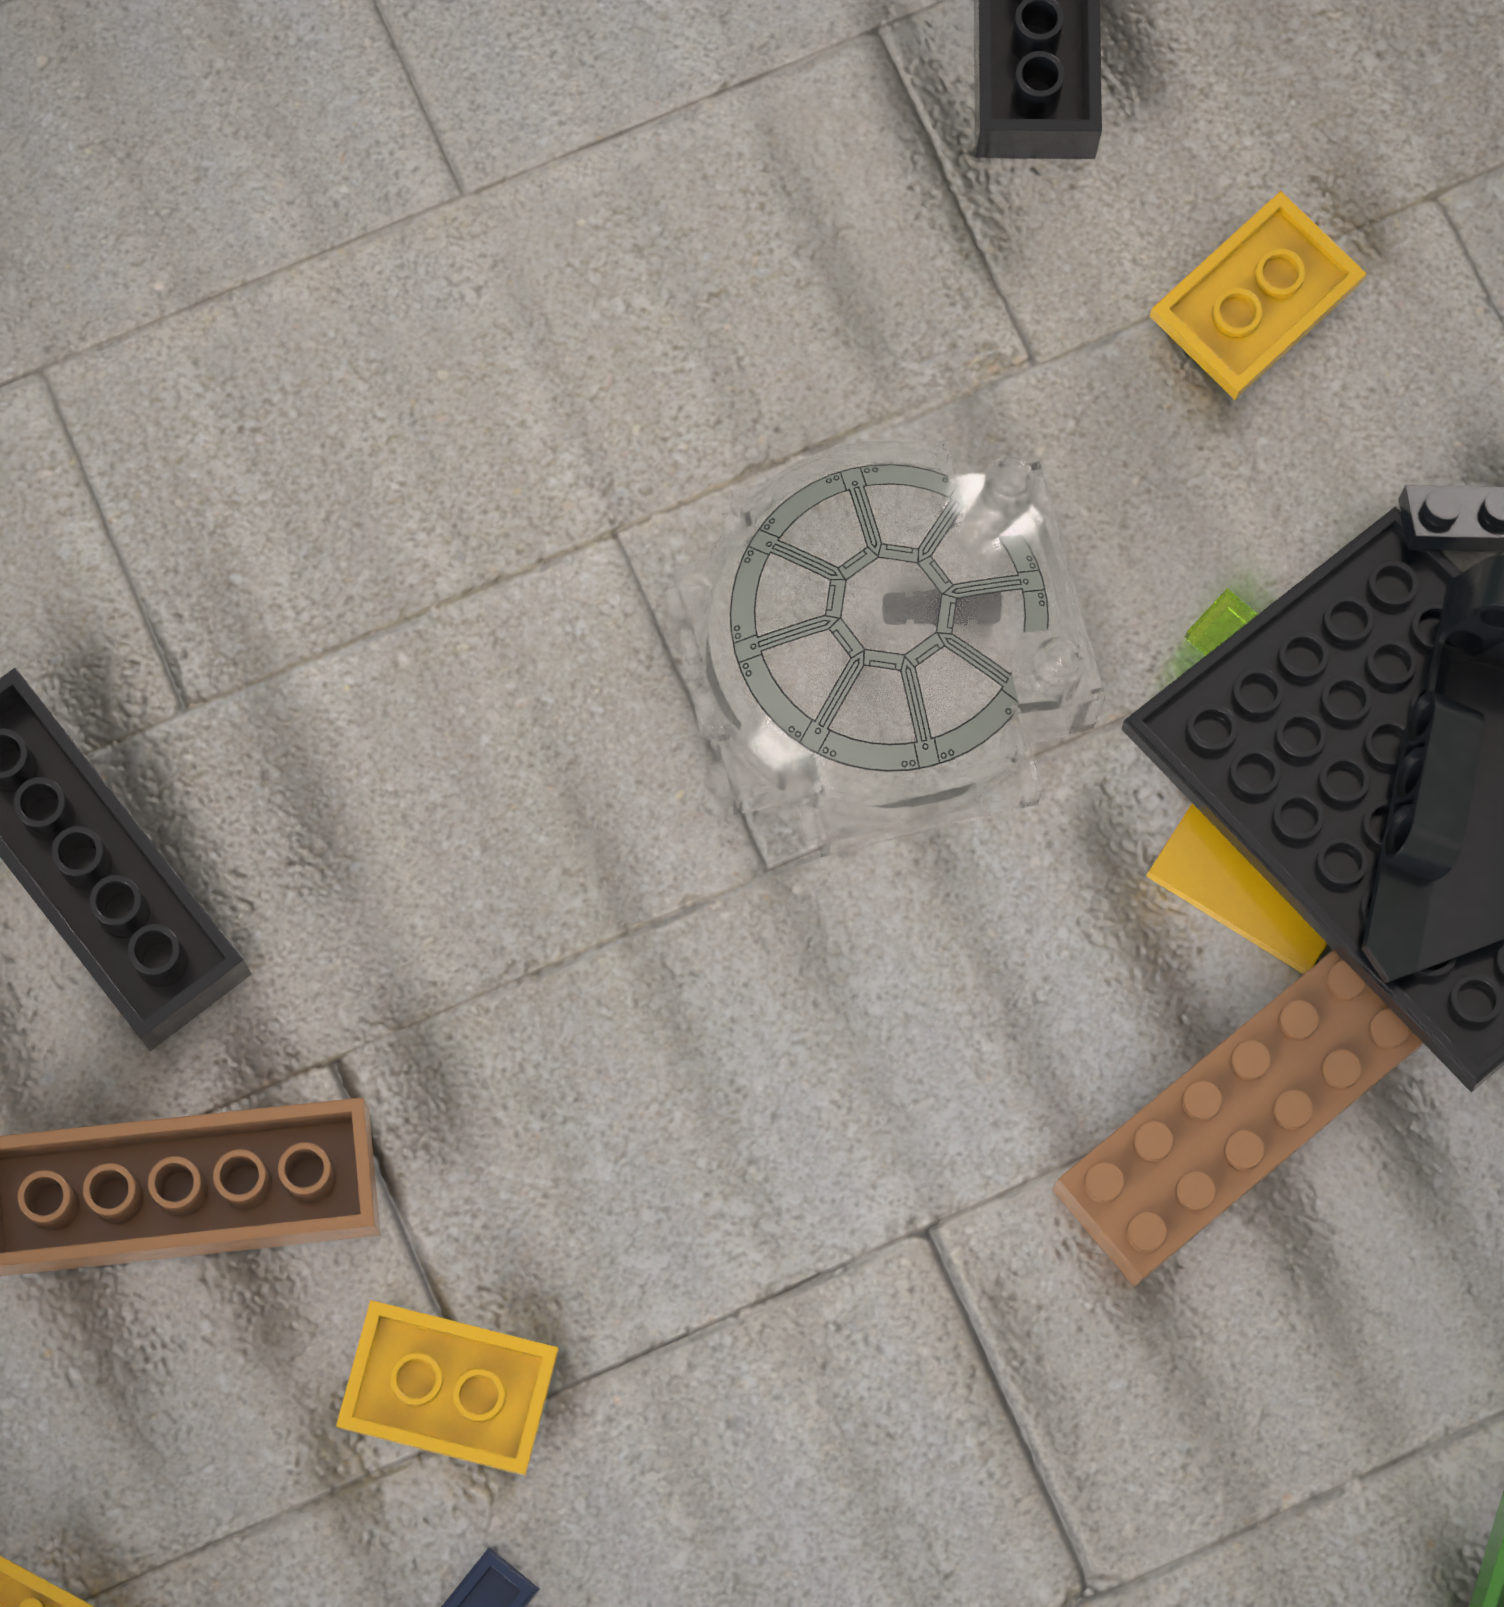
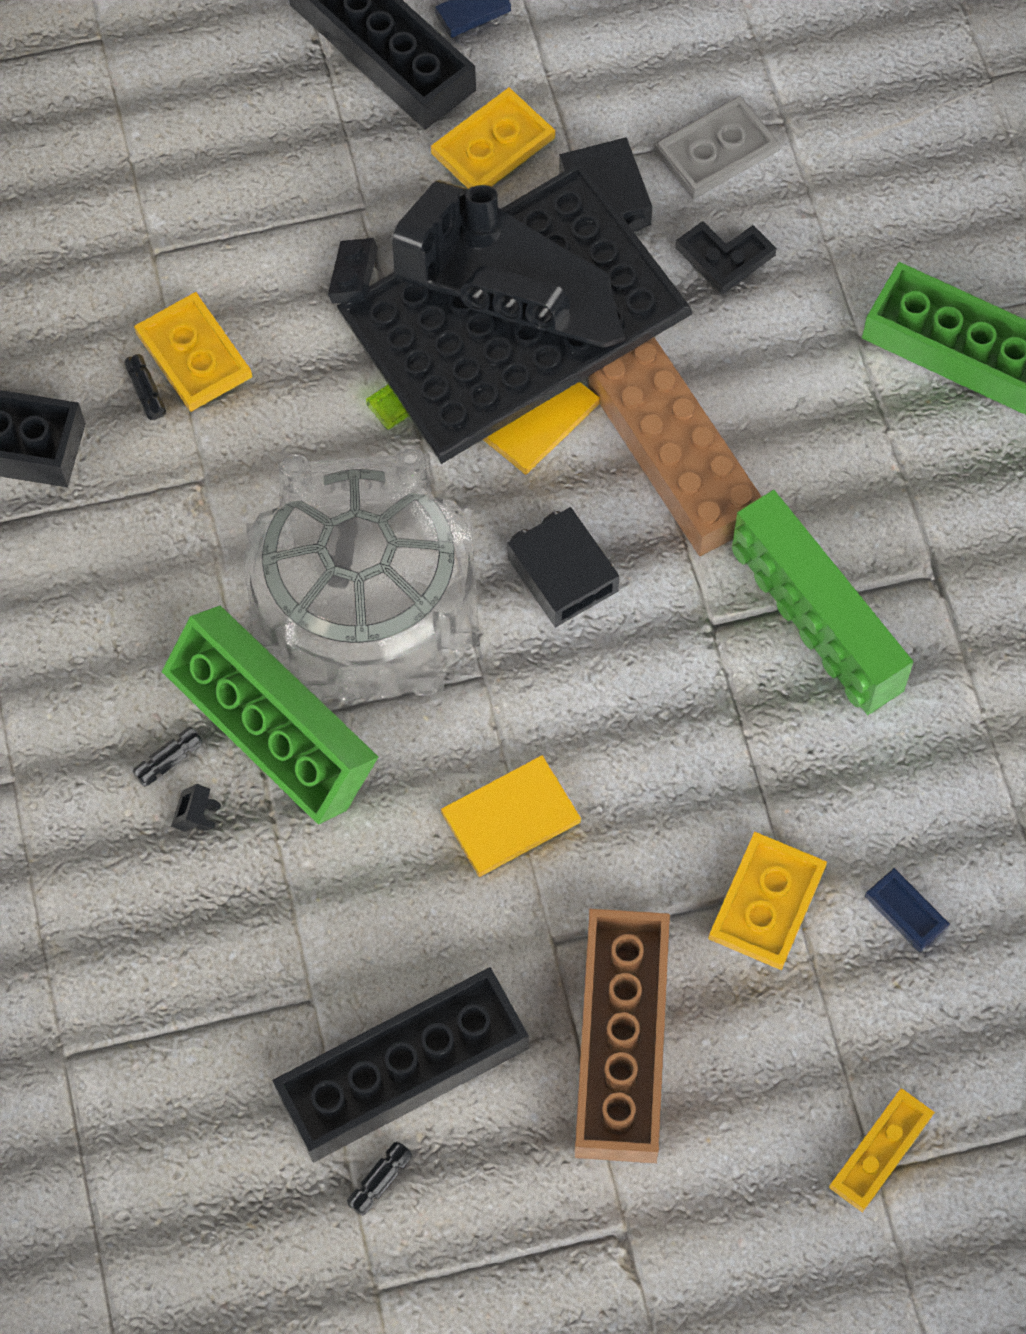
camera: 75 degrees left, 10 degrees down
(453, 464) = (191, 809): none -> black tile
(529, 956) = (510, 816): none -> yellow tile
(538, 411) = (167, 756): none -> black axle
(616, 542) = (269, 714): none -> bright green brick
(978, 960) = (562, 566): none -> black brick
(979, 1396) = (820, 603): none -> bright green brick
(1179, 235) = (145, 387): none -> black axle

